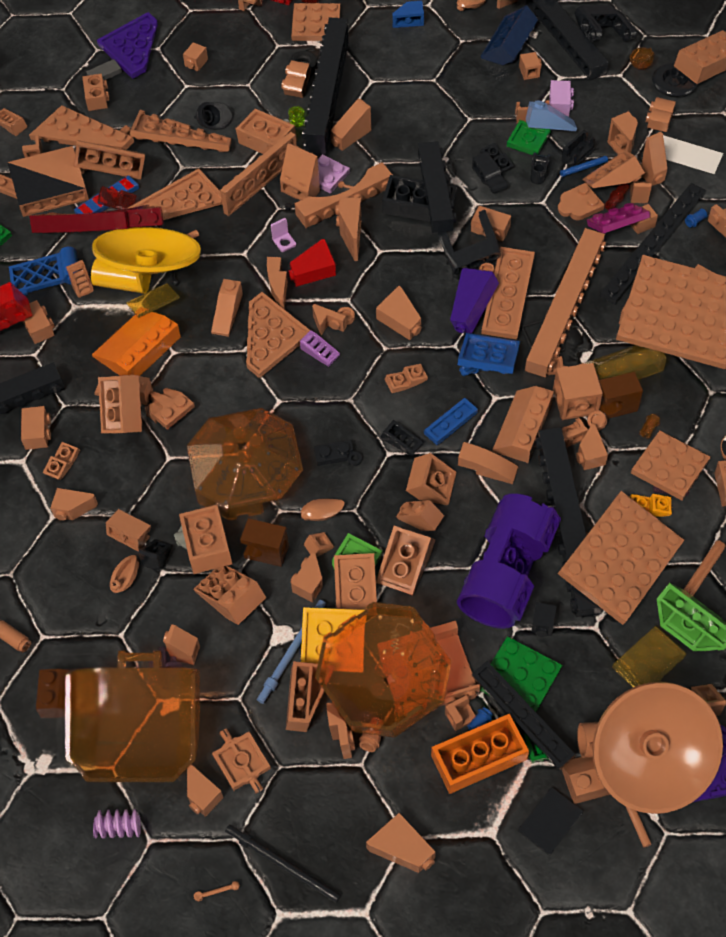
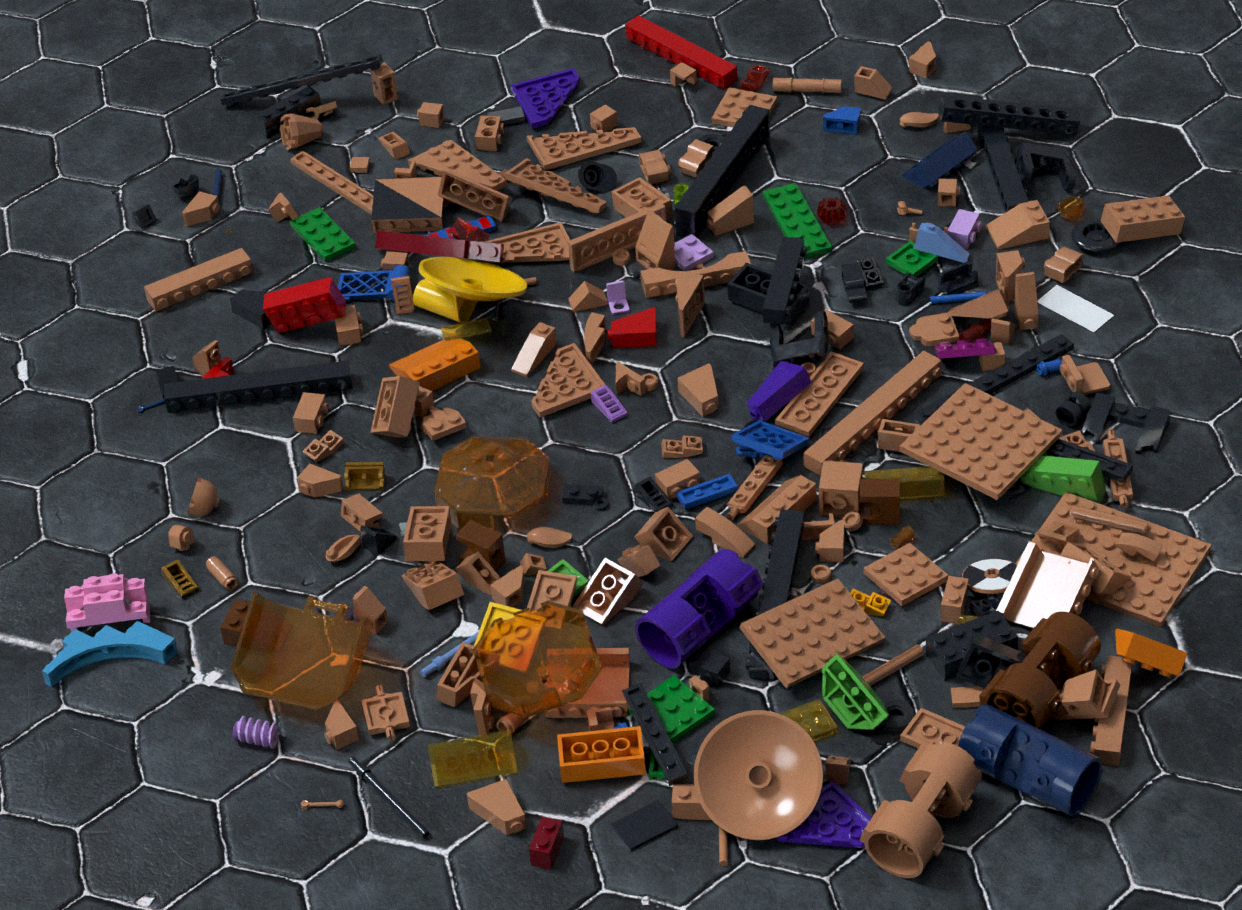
camera: 20 degrees right, 15 degrees down
(33, 84) = (431, 115): none -> nougat brick
(56, 243) = (393, 259): none -> nougat brick
(115, 486) = (364, 476): none -> pearl gold hinge
(181, 88) = (578, 146): none -> nougat wing
(252, 241) = (587, 297): none -> nougat slope
(260, 94) = (654, 167): none -> nougat brick
(267, 191) = (621, 257): none -> nougat tile
(271, 569) = (478, 572): none -> nougat slope
(350, 790) = (472, 757): none -> clear yellow slope
(407, 118) = (796, 218): none -> green plate
(419, 415) = (677, 478): none -> nougat brick
(437, 104) = (831, 210): none -> clear red gear
(468, 876) = (546, 842): none -> dark red brick
(489, 405) = (753, 486): none -> nougat plate
(498, 89) = (903, 209): none -> nougat hand
(540, 645) = (700, 687): none -> nougat plate
(592, 484) = (820, 574): none -> nougat tile
(601, 319) = (894, 433): none -> nougat slope
(606, 85) = (1019, 226): none -> nougat slope

